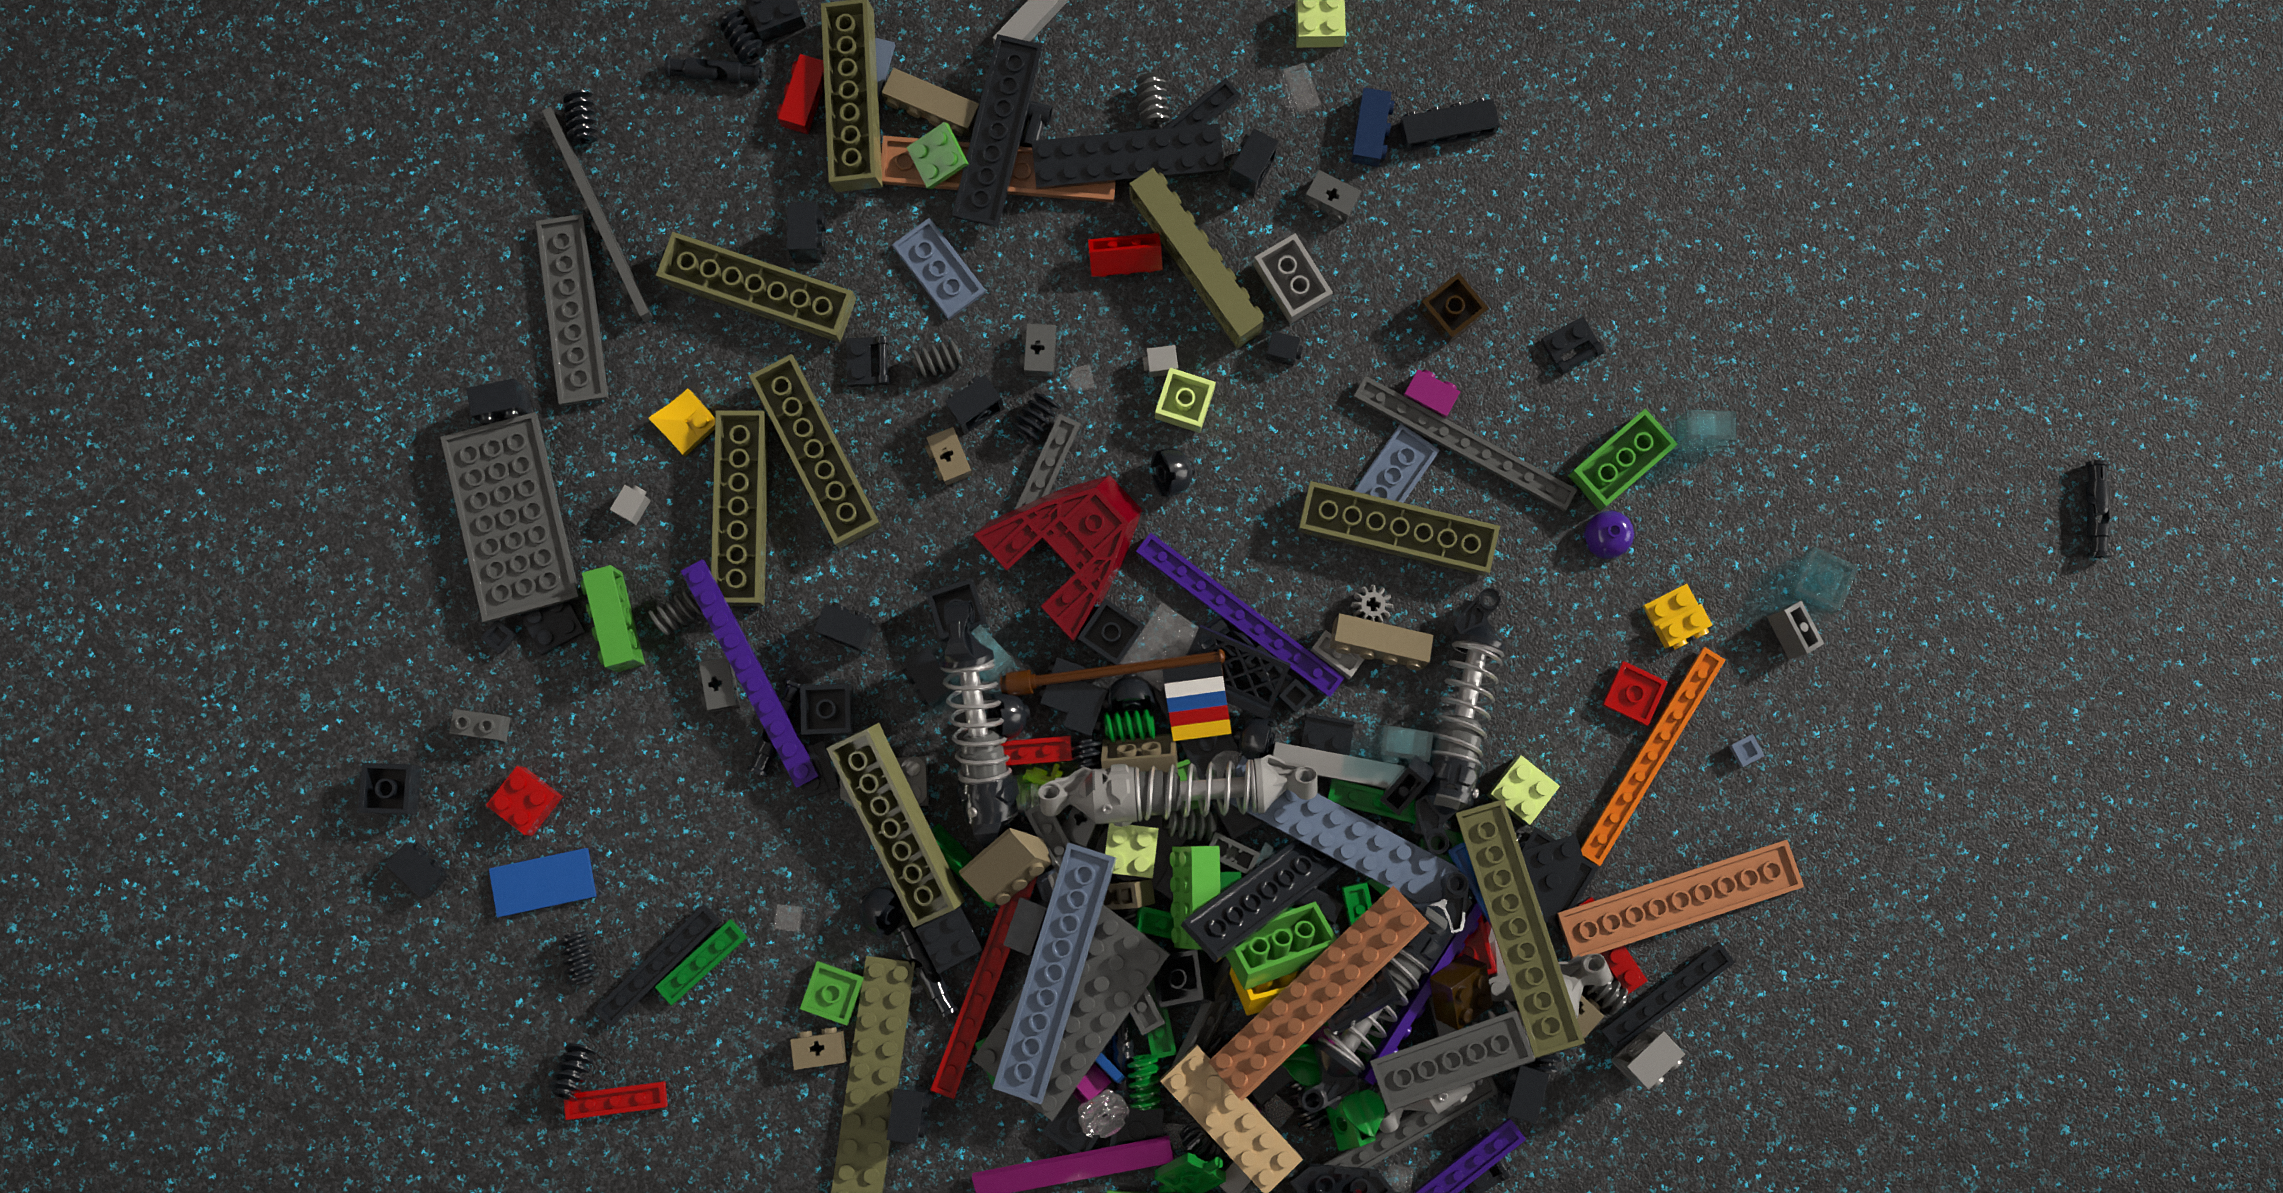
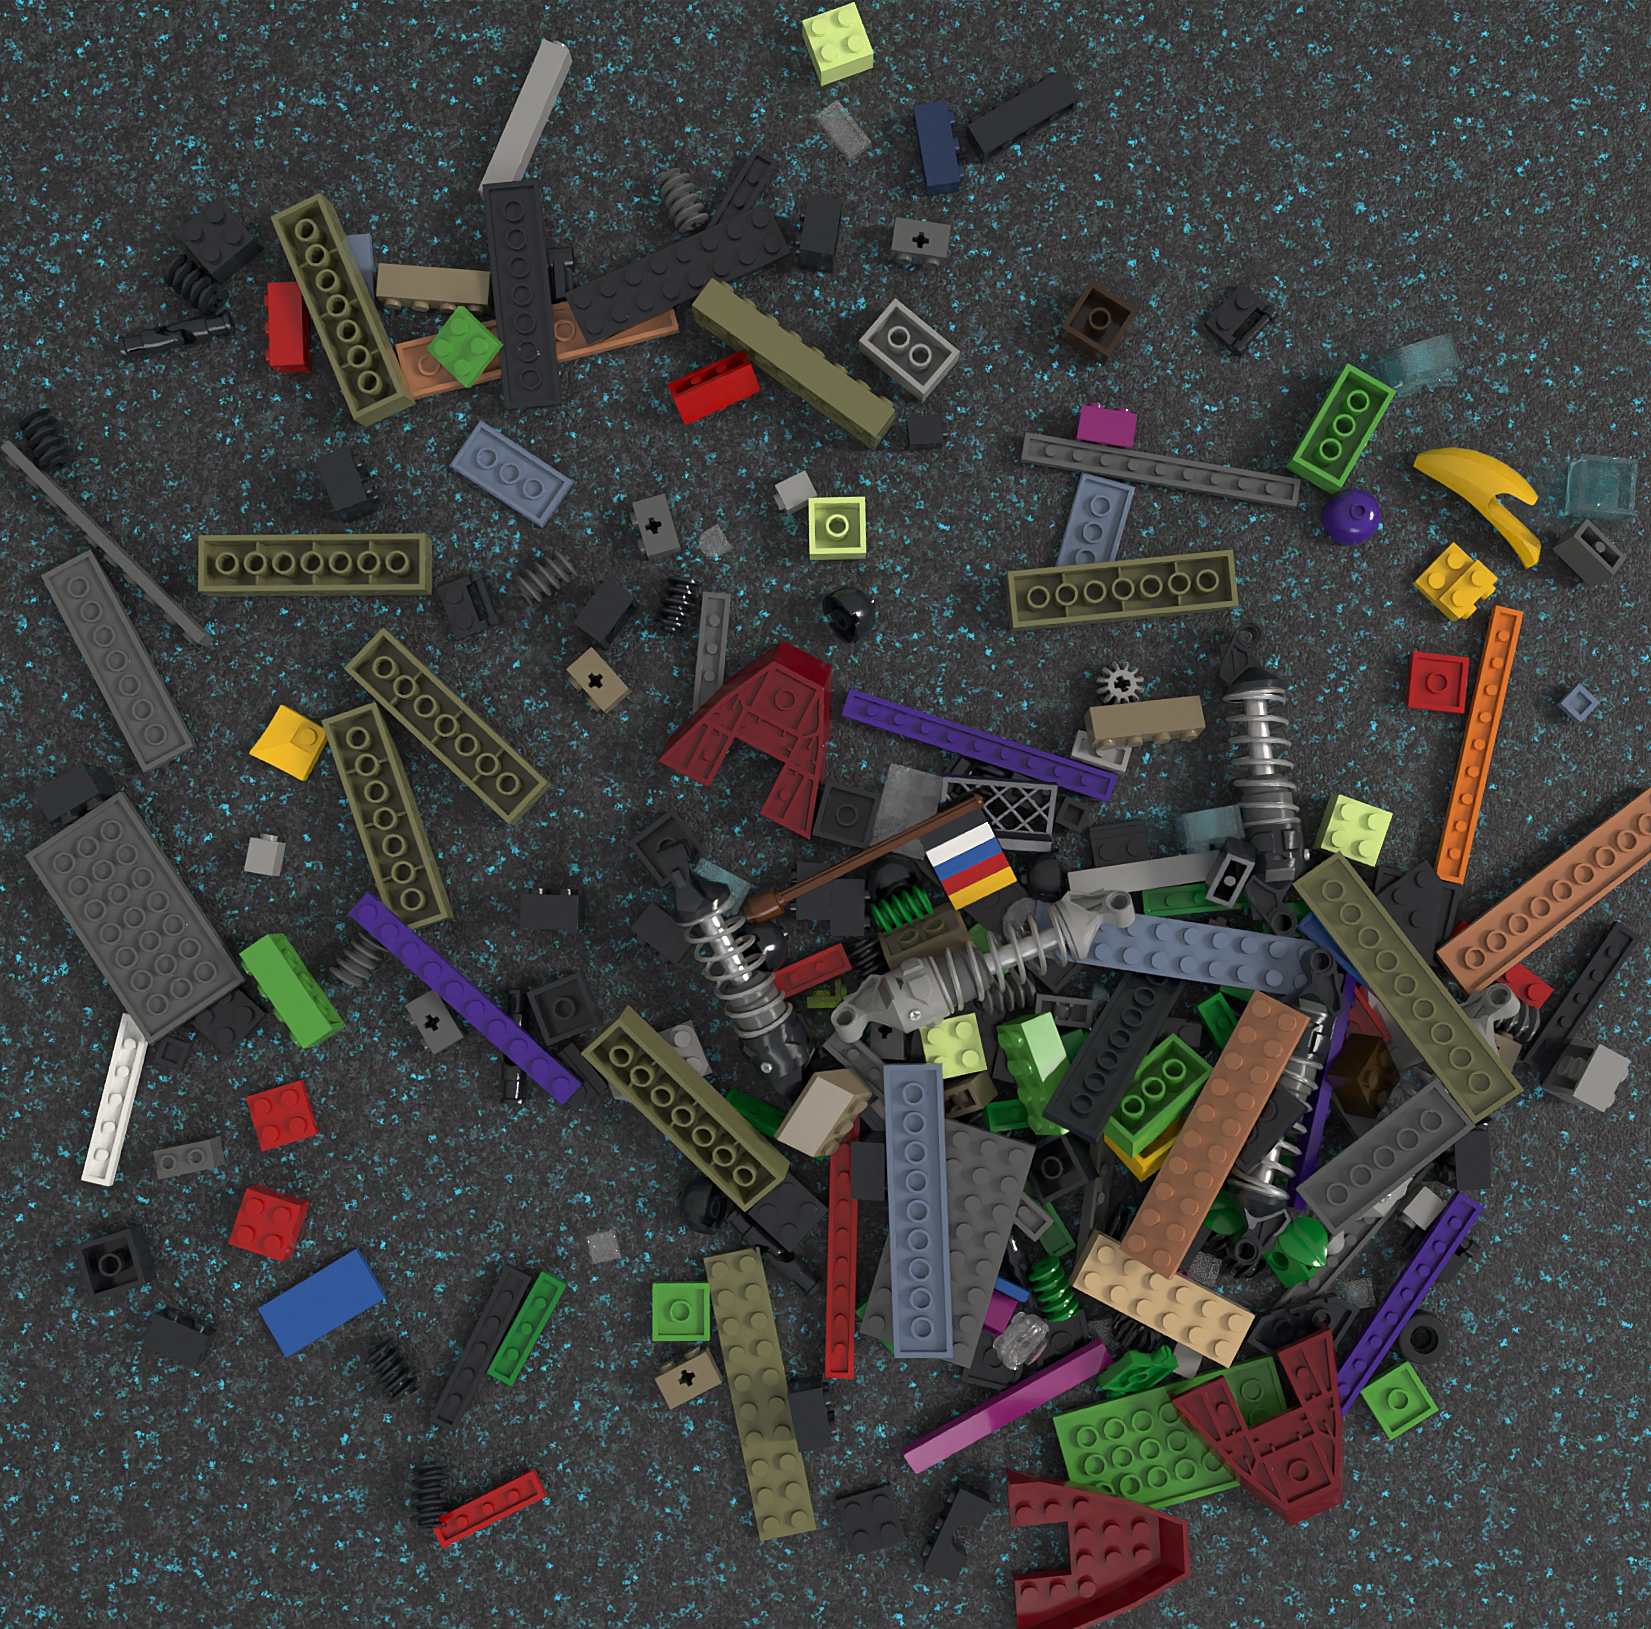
camera: 20 degrees left, 5 degrees up
(437, 661) = (116, 1104): none -> white plate
(566, 718) = (282, 1115): none -> red plate
(1027, 796) = (818, 1024): clear tile -> none
(1474, 1123) = (1420, 1207): none -> light grey brick
(1723, 540) = (1478, 480): none -> yellow piece

